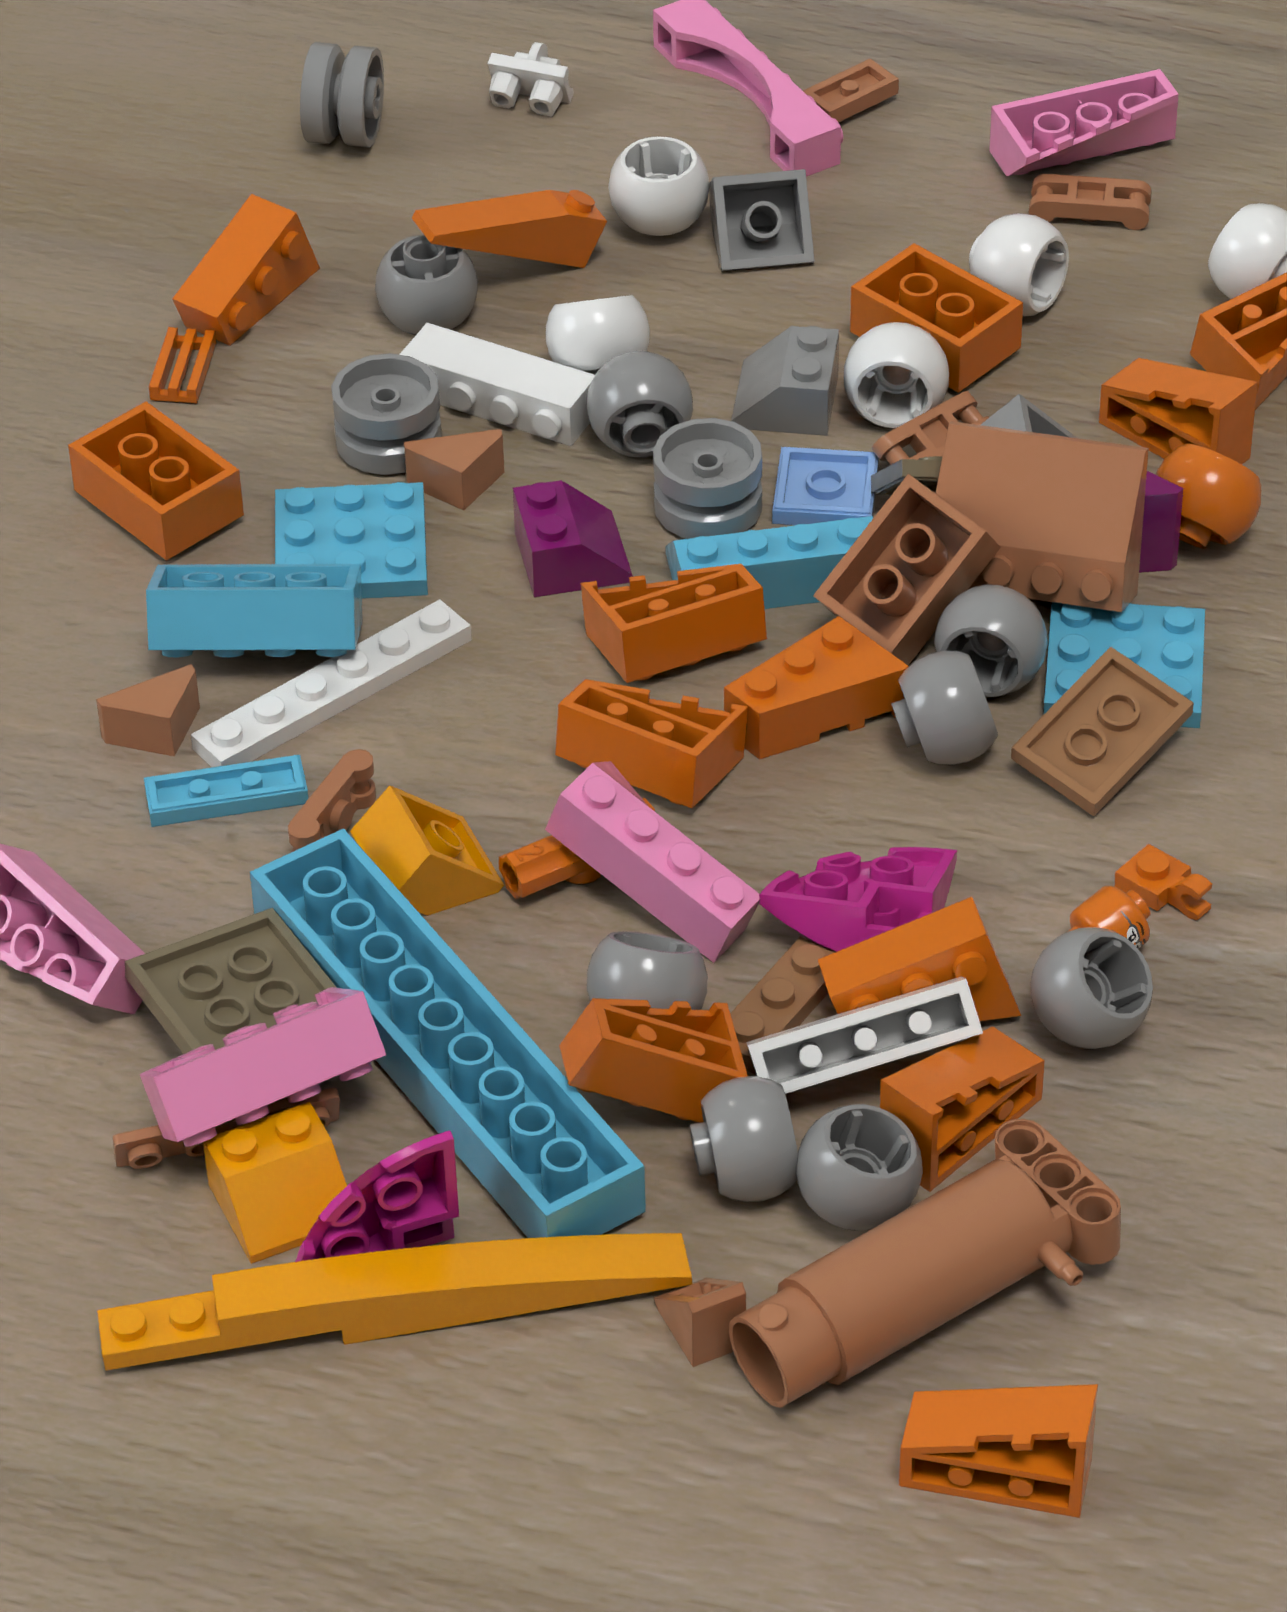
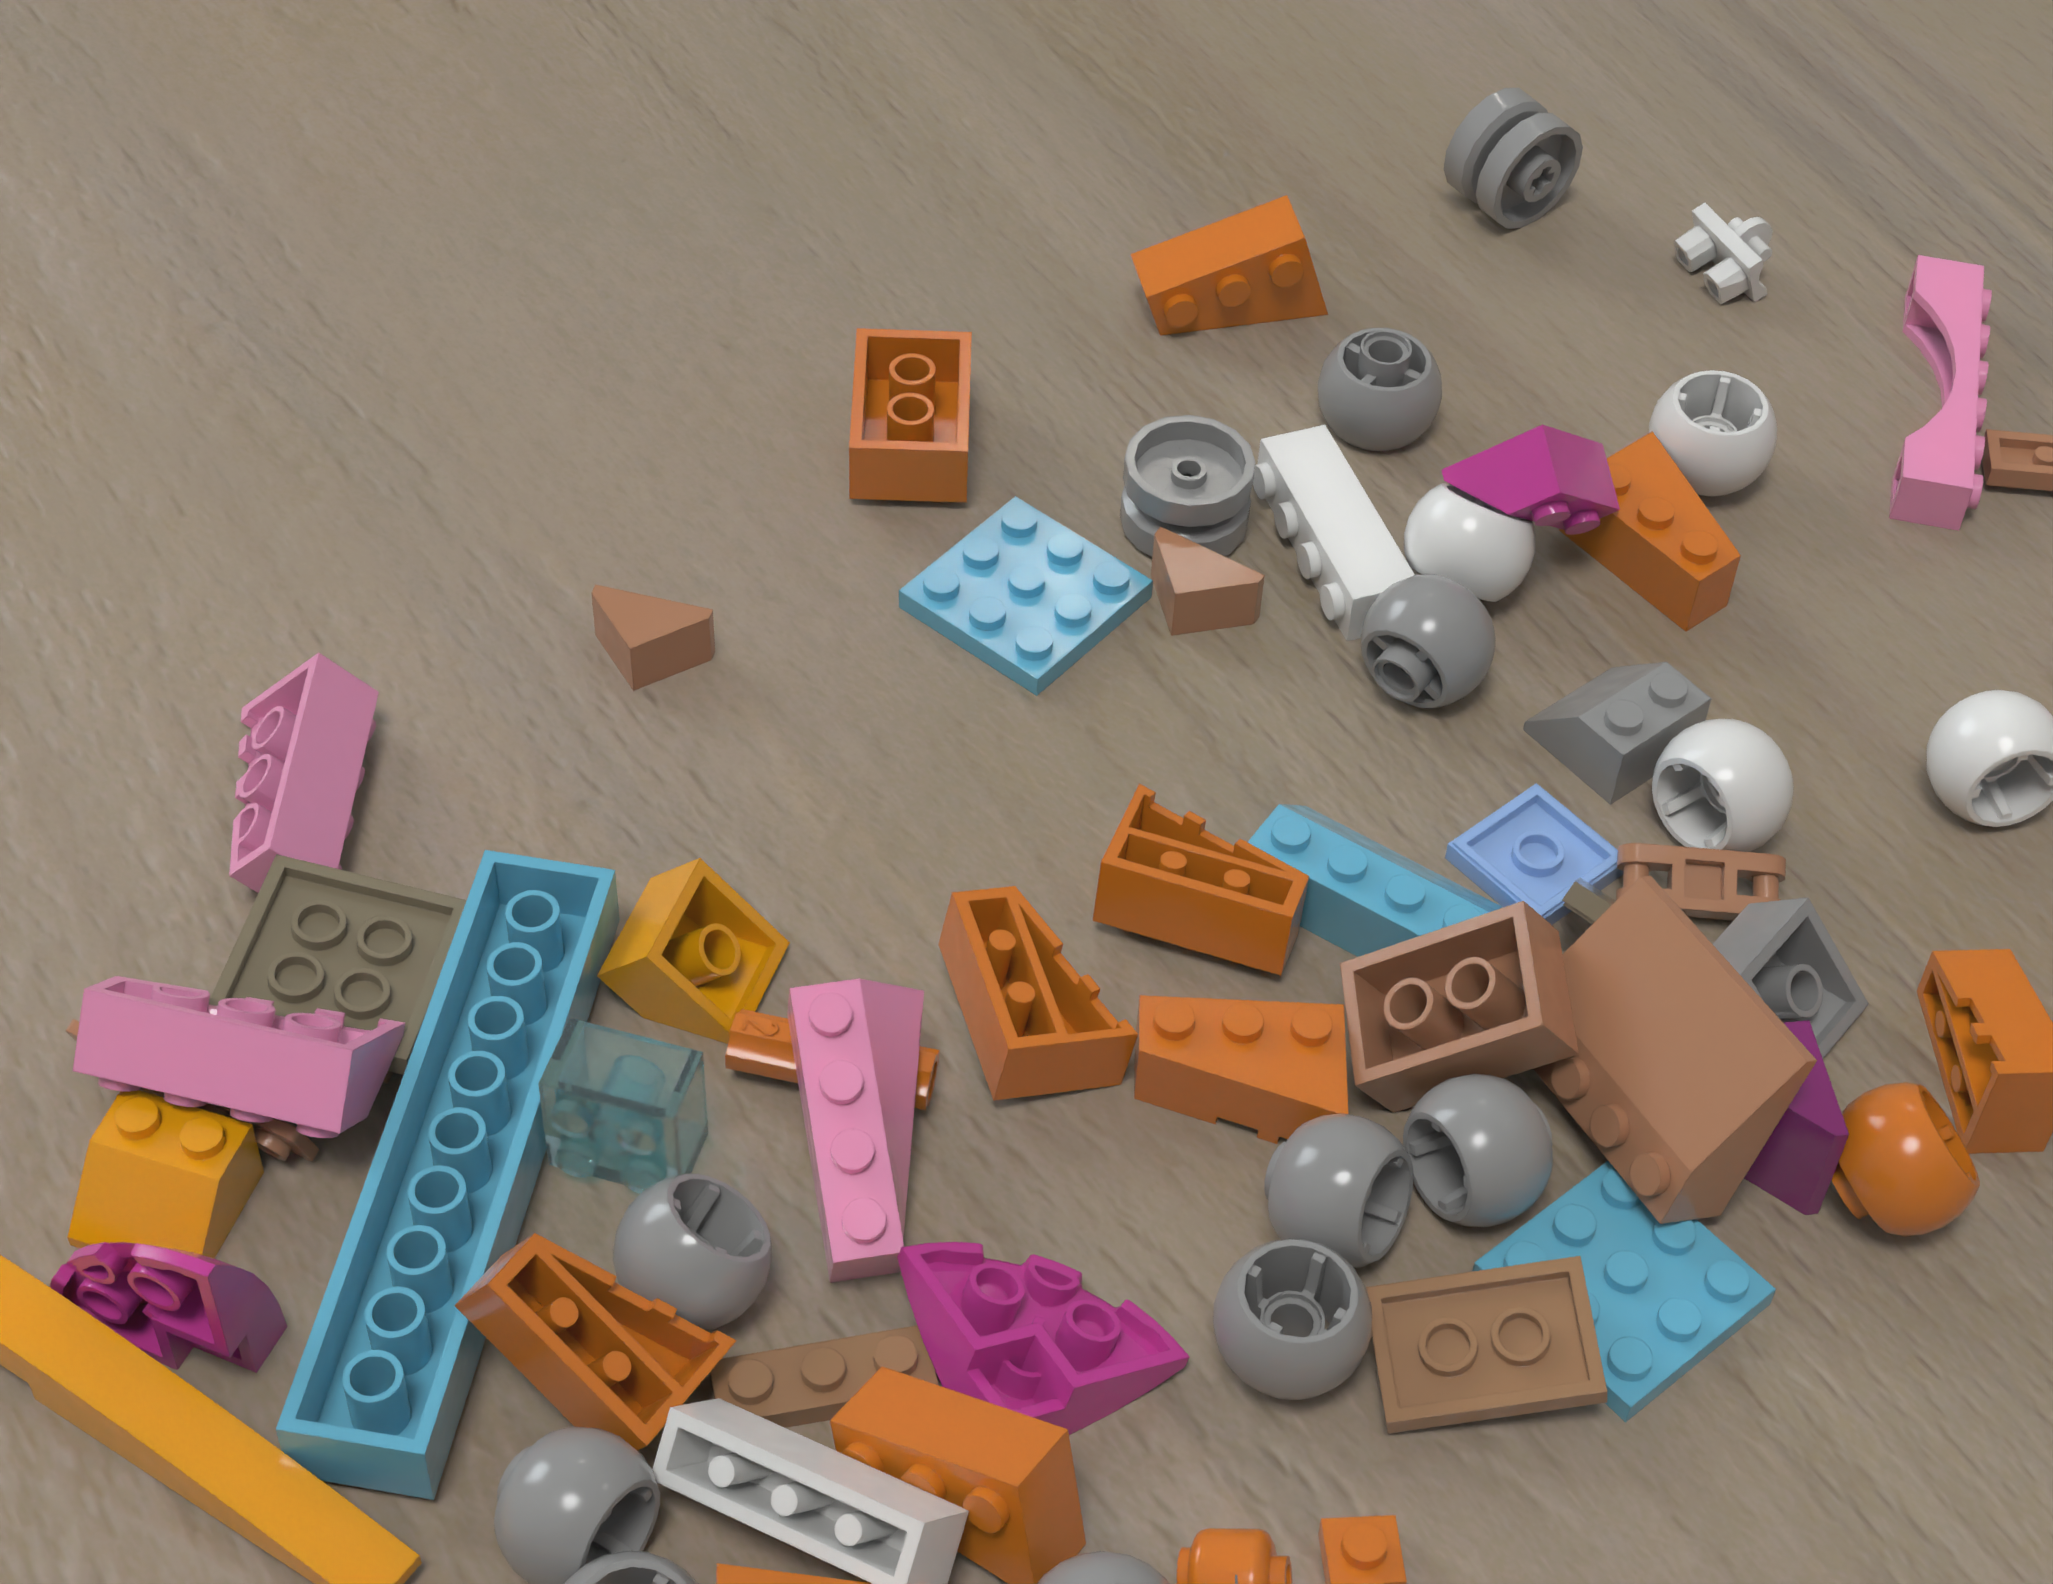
camera: 40 degrees right, 5 degrees up
(165, 360) = (1082, 321): orange tile -> none
(225, 790) = (625, 756): medium azure tile -> none
(254, 609) = (831, 595): medium azure brick -> none
(332, 686) = (836, 724): white plate -> none
(335, 800) = (672, 838): nougat plate -> none
(515, 938) = (622, 1106): none -> clear light blue brick
(528, 226) = (1508, 378): orange wedge -> none
(567, 539) = (1211, 732): magenta slope -> none
(611, 266) = (1542, 479): none -> dark pink slope
(687, 266) = (1663, 537): none -> orange wedge
(707, 478) = (1405, 765): light grey wheel -> none
(761, 220) = (1793, 535): light grey slope -> none
(964, 314) = (1849, 755): orange brick -> none
(999, 783) = (1291, 1291): none -> light grey wheel

